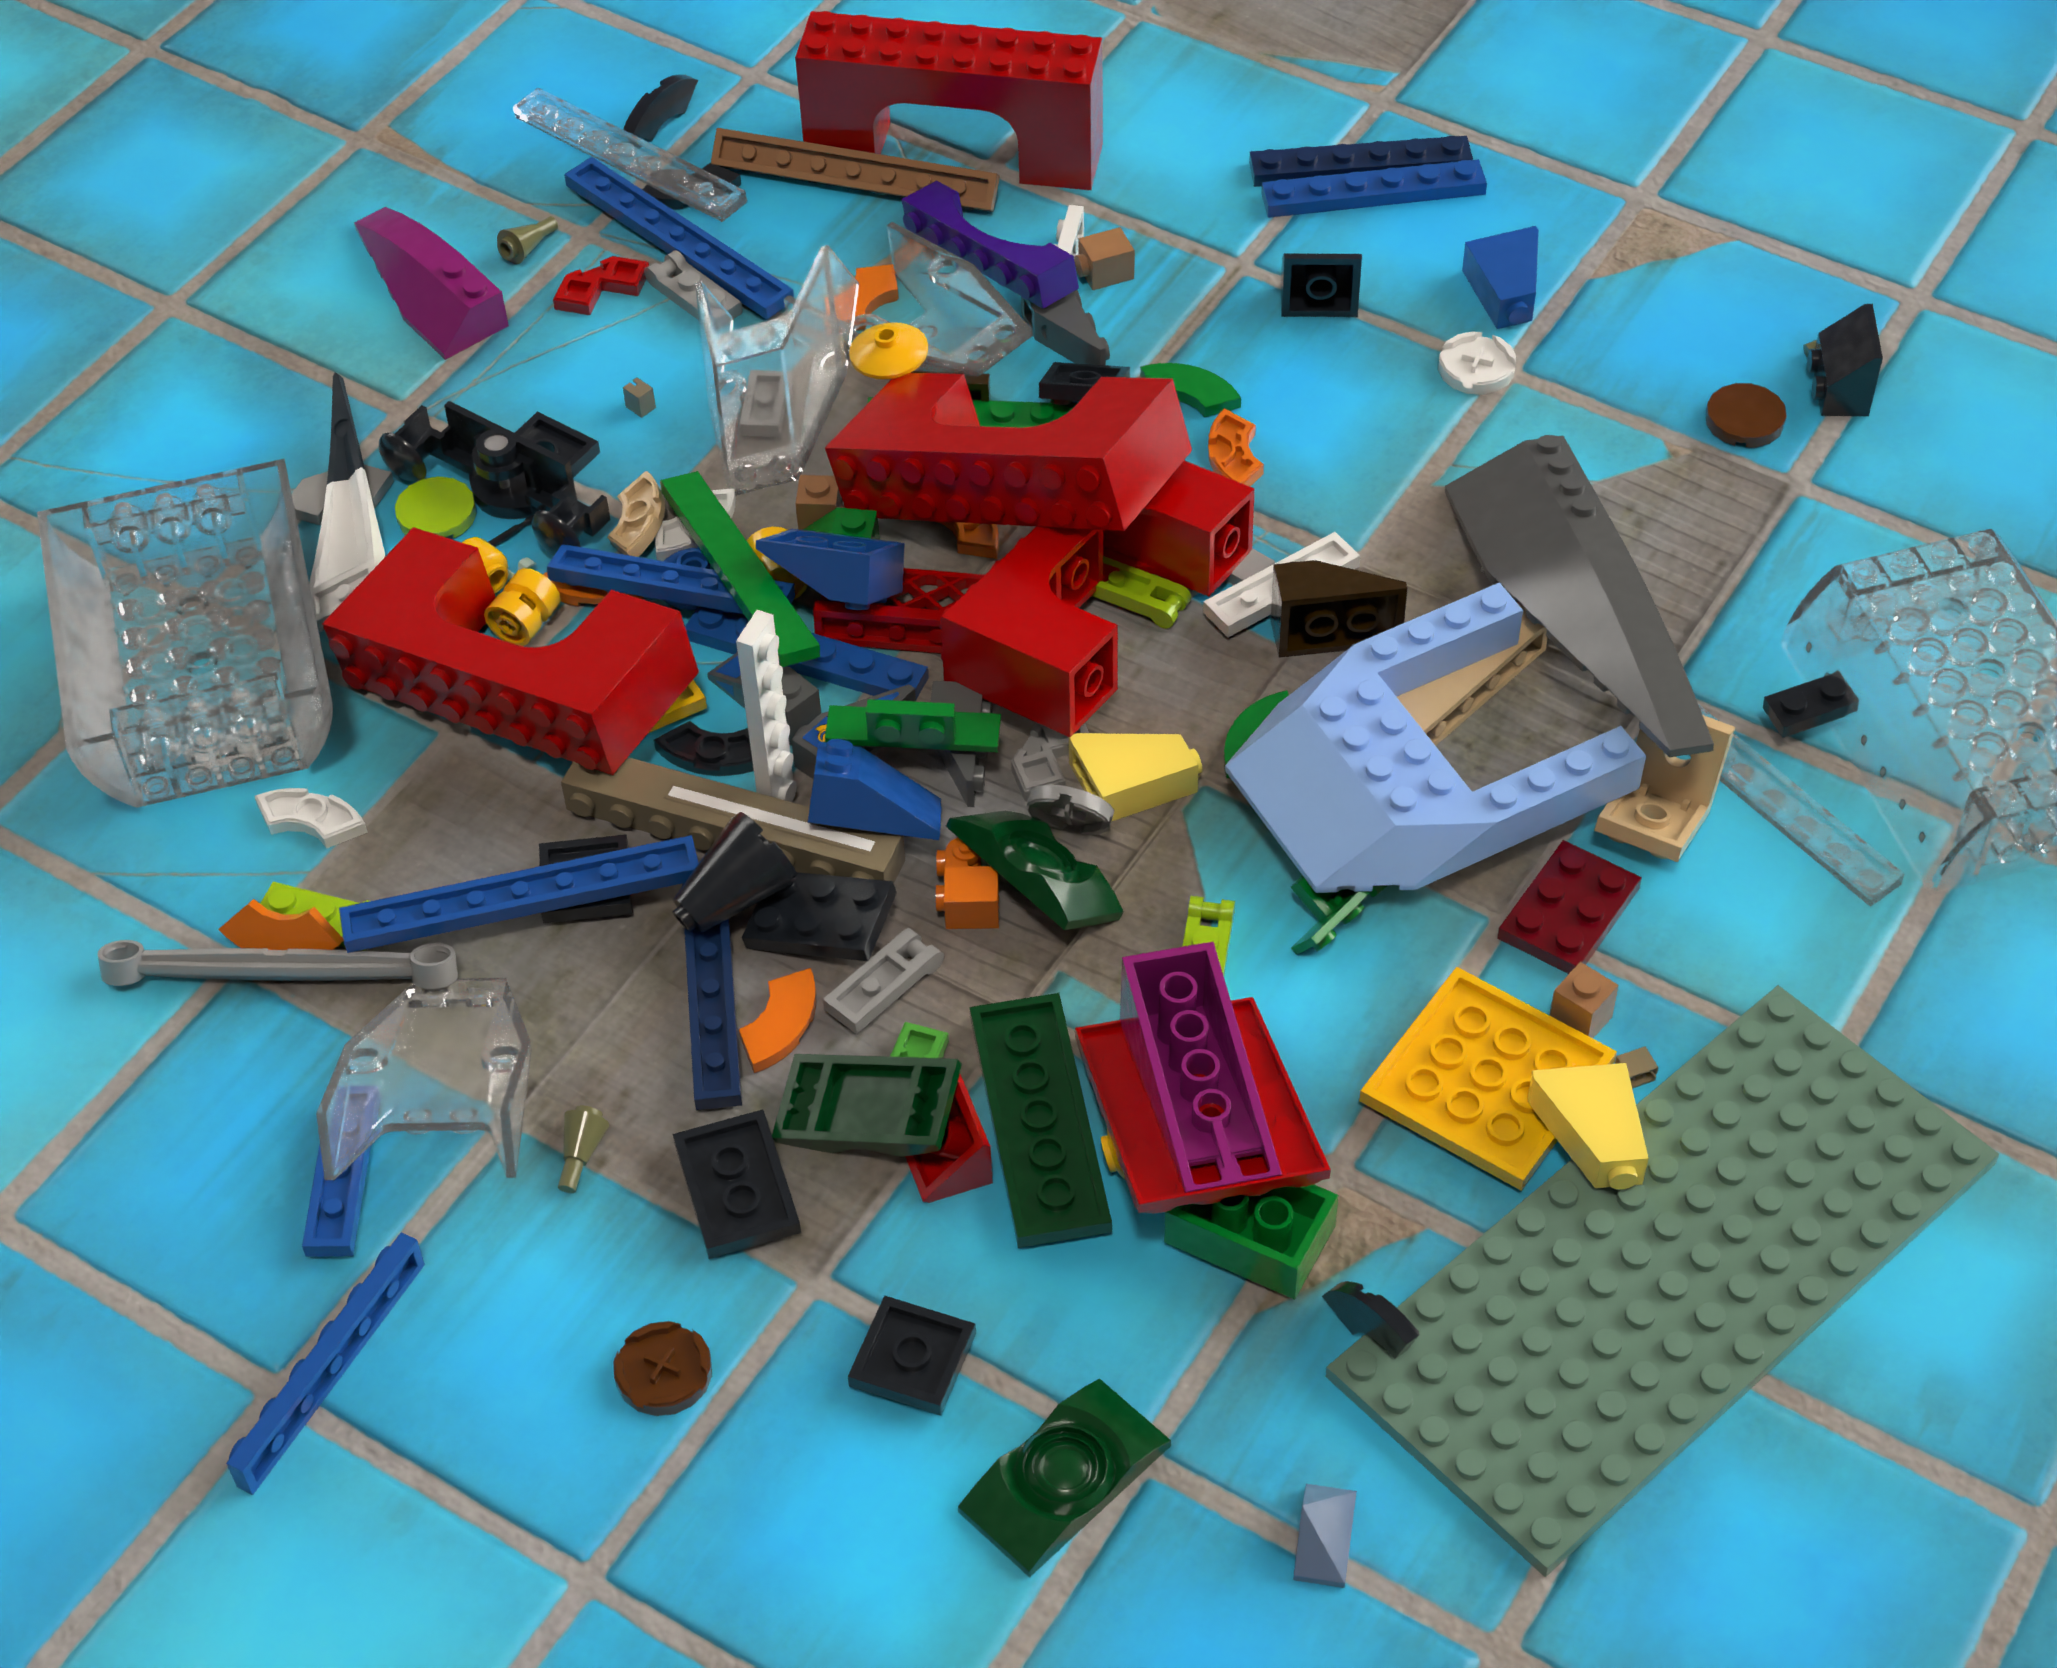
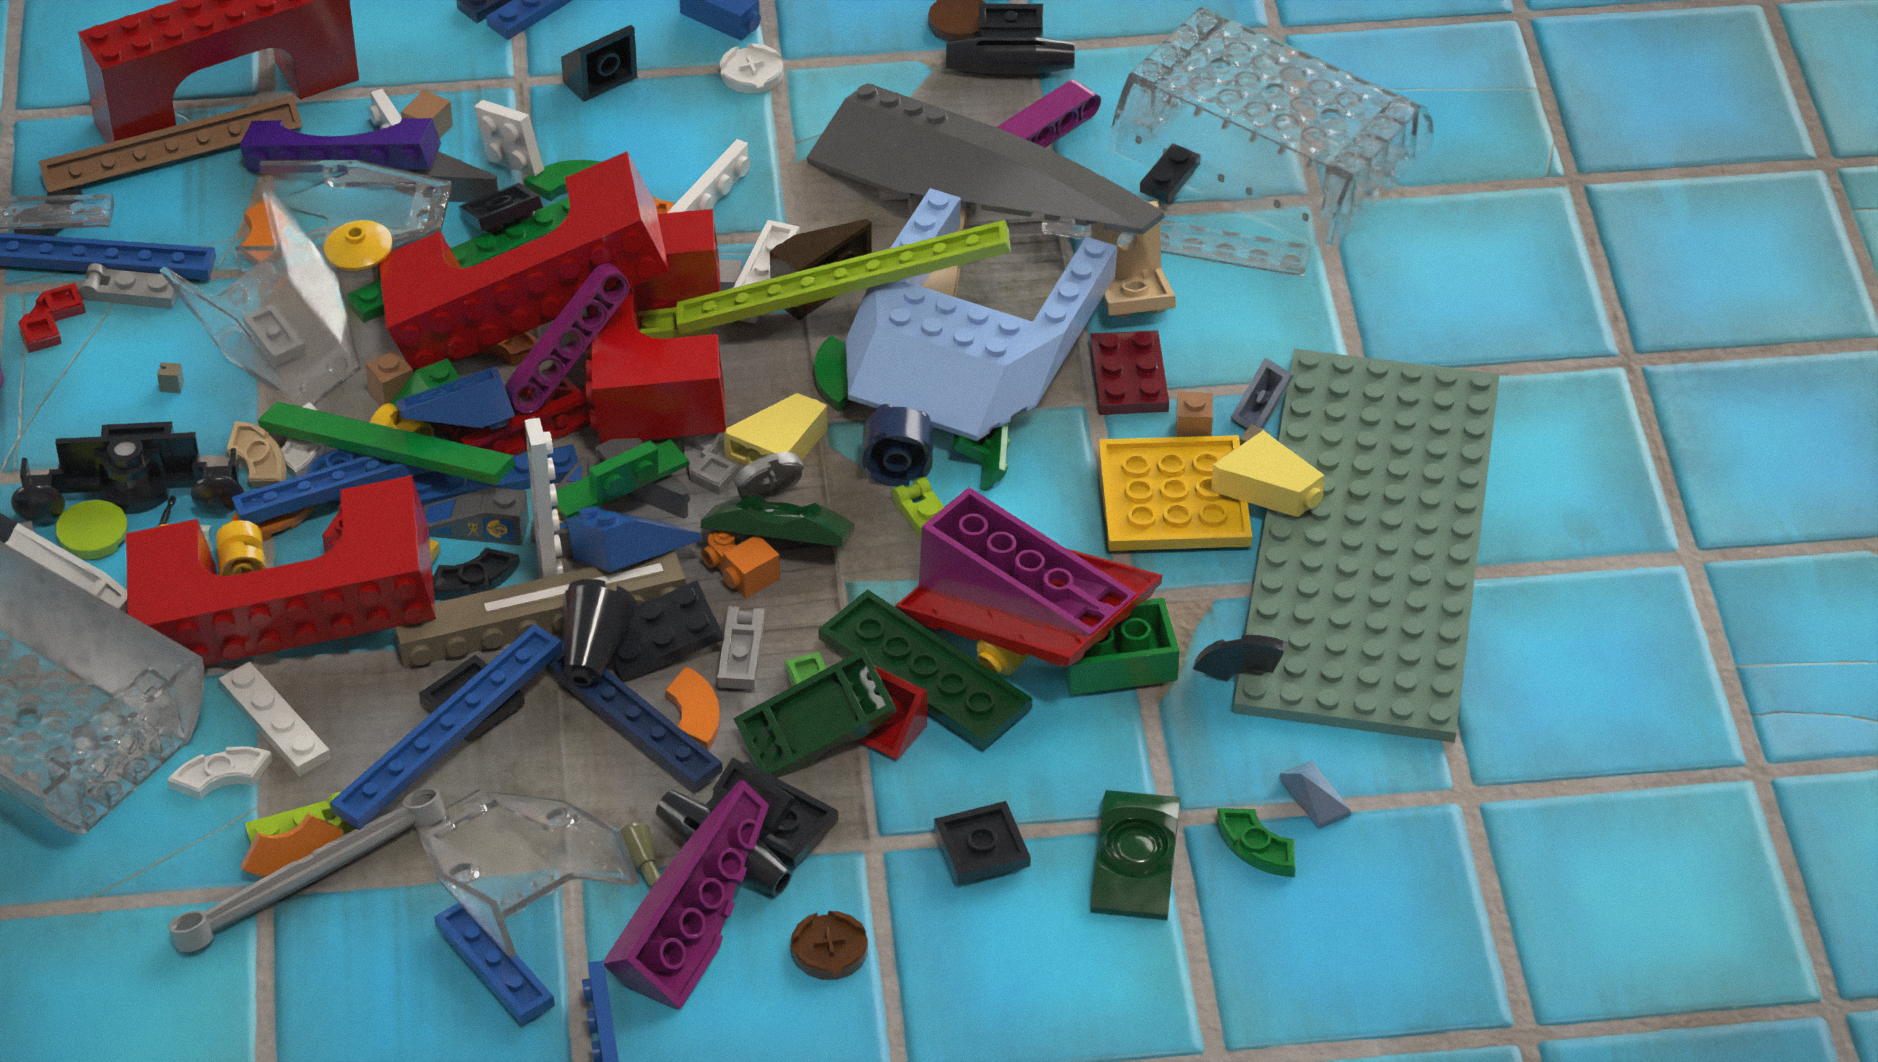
camera: 40 degrees left, 5 degrees down
(403, 792) = (274, 719): none -> white plate
(552, 1234) = (684, 912): none -> magenta wedge
(676, 1172) = (686, 815): none -> black plate
(988, 537) = (568, 321): none -> magenta beam
(1149, 314) = (509, 137): none -> white plate
(1202, 1550) = (1256, 844): none -> green tile
(1229, 850) = (897, 445): none -> dark blue brick
(1312, 466) = (716, 180): none -> white plate
(1320, 634) = (843, 277): none -> lime plate
(1682, 1020) = (1262, 395): none -> sand blue slope
(1726, 574) = (1054, 114): none -> magenta beam
(1769, 469) = (1010, 44): none -> black plate

